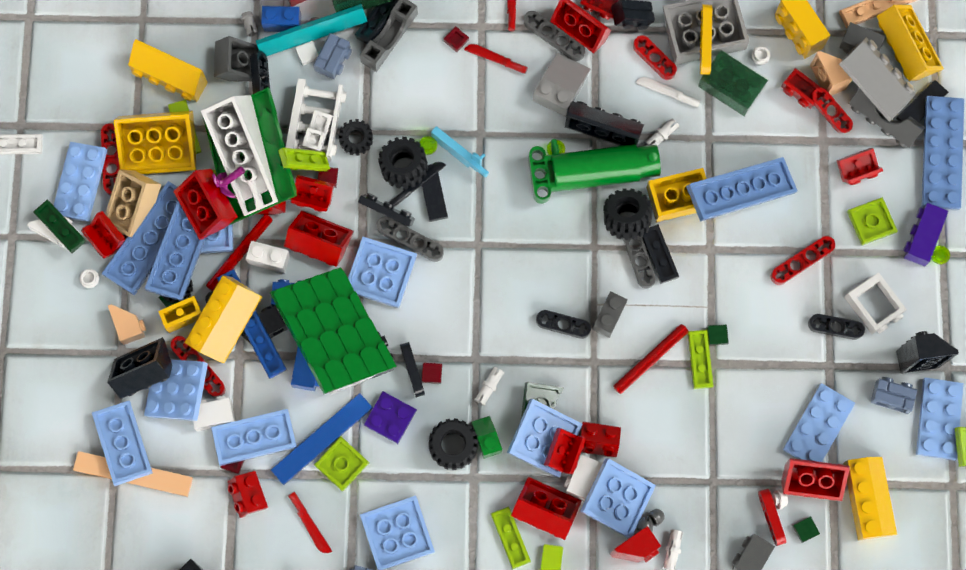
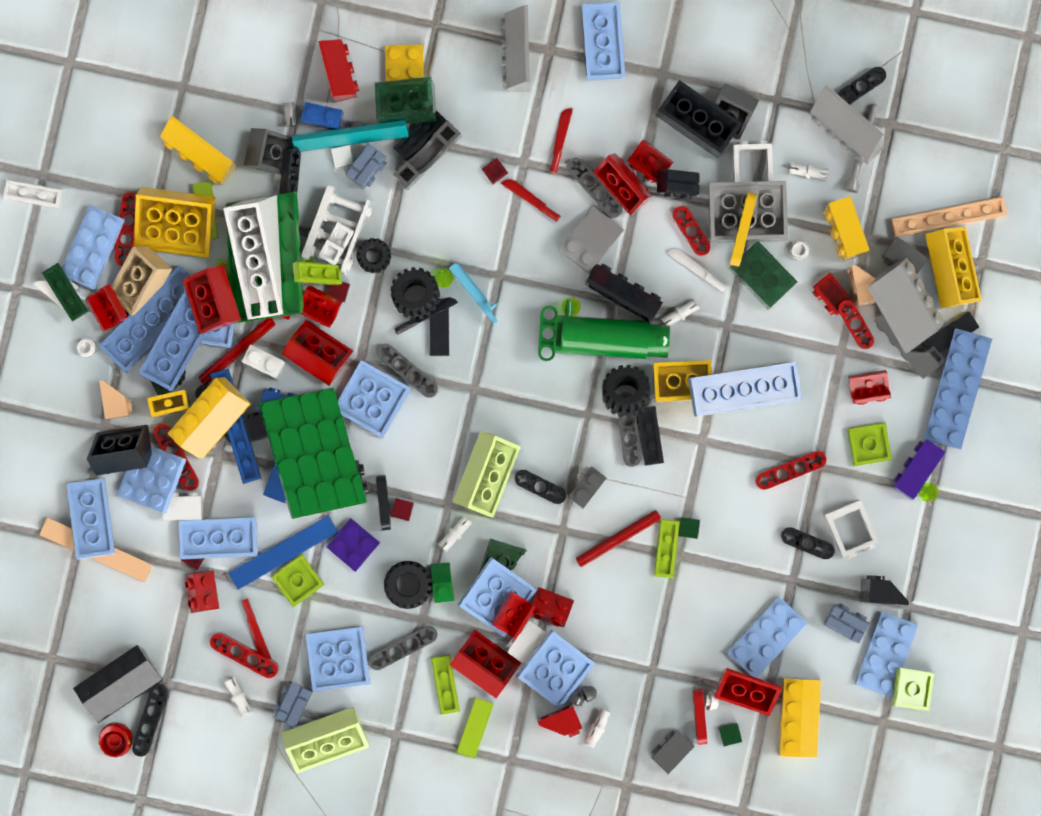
camera: 15 degrees right, 10 degrees up
(222, 180) = (233, 281): magenta plant -> none
(302, 547) = (243, 657): none -> red beam
(387, 209) = (390, 337): black plate -> none
(462, 511) = (404, 650): none -> dark grey beam
(508, 321) = (486, 474): none -> yellowish green slope

